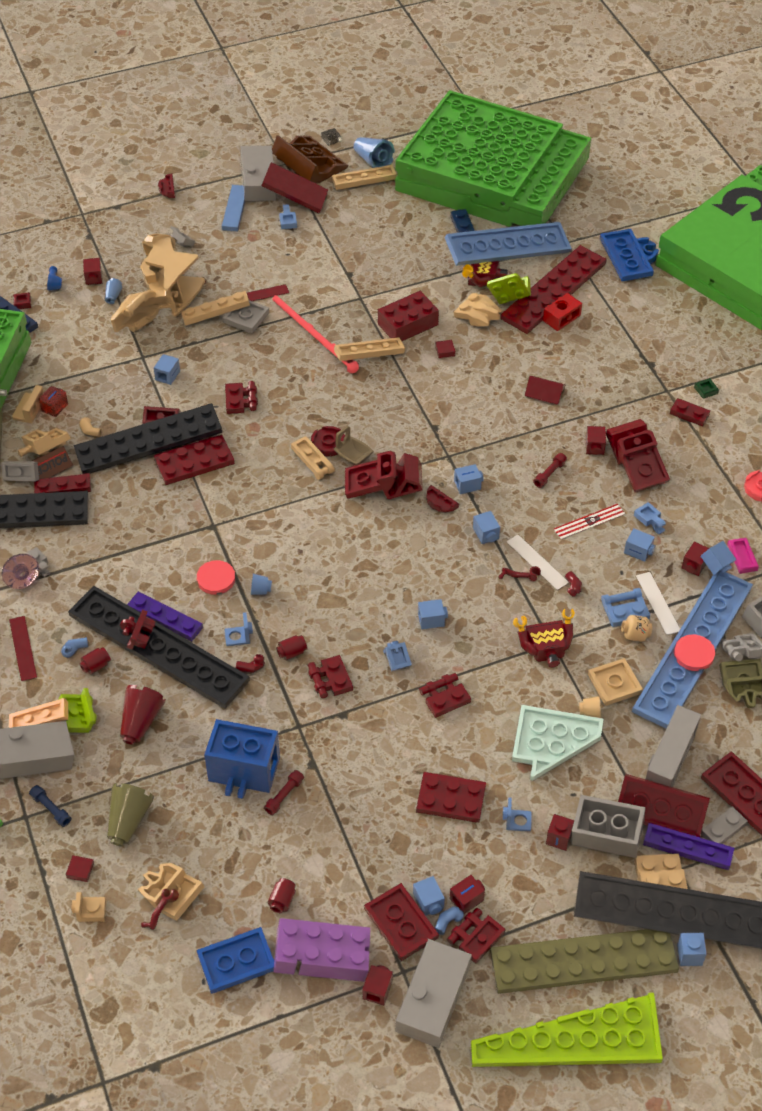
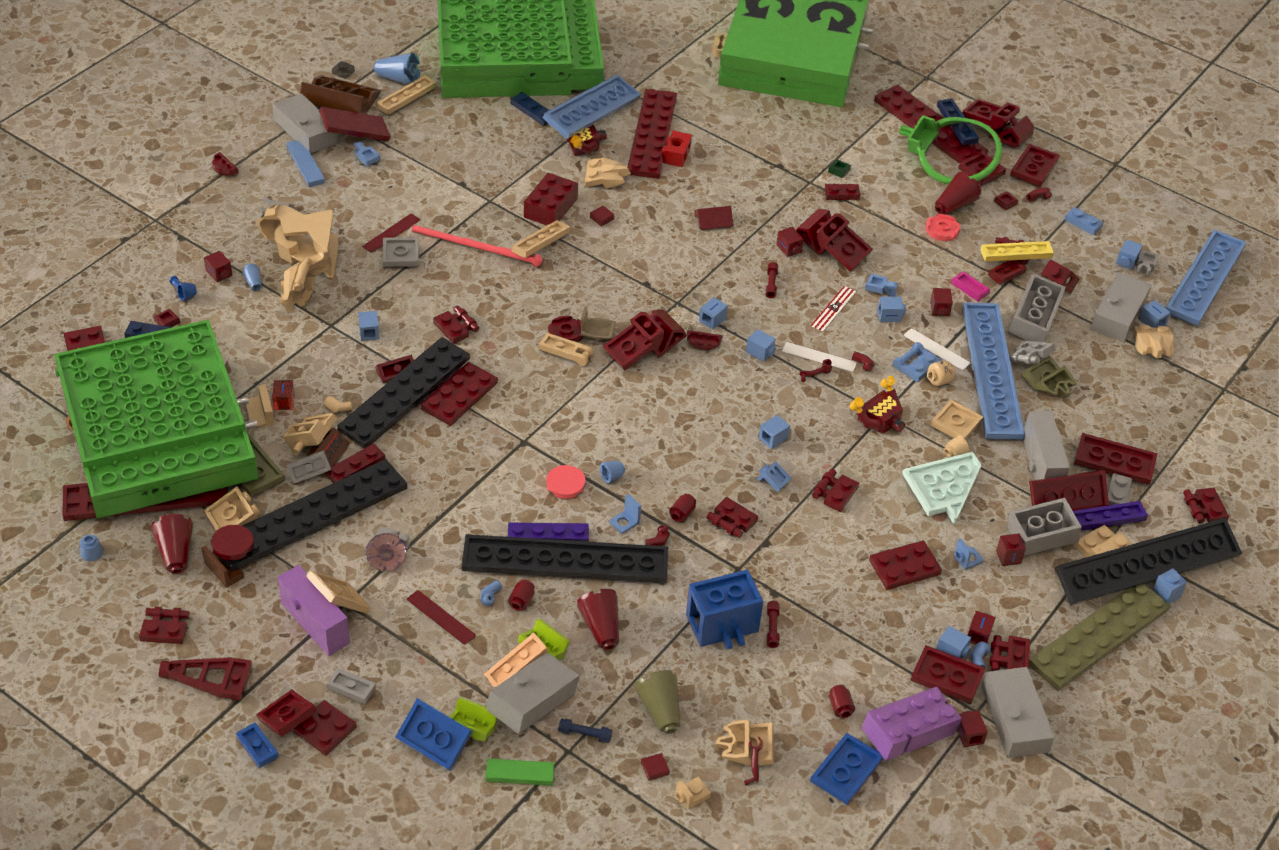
camera: 35 degrees left, 5 degrees down
(143, 623) = (542, 551): dark red hips -> none
(215, 308) = (368, 255): tan plate -> none
(509, 288) = (623, 143): lime bracket -> none
(605, 1035) = (1156, 680): lime wing -> none
(629, 254) = (692, 82): blue plate -> none
(694, 652) = (1000, 371): coral tile -> none
(718, 558) = (963, 292): medium blue brick -> none

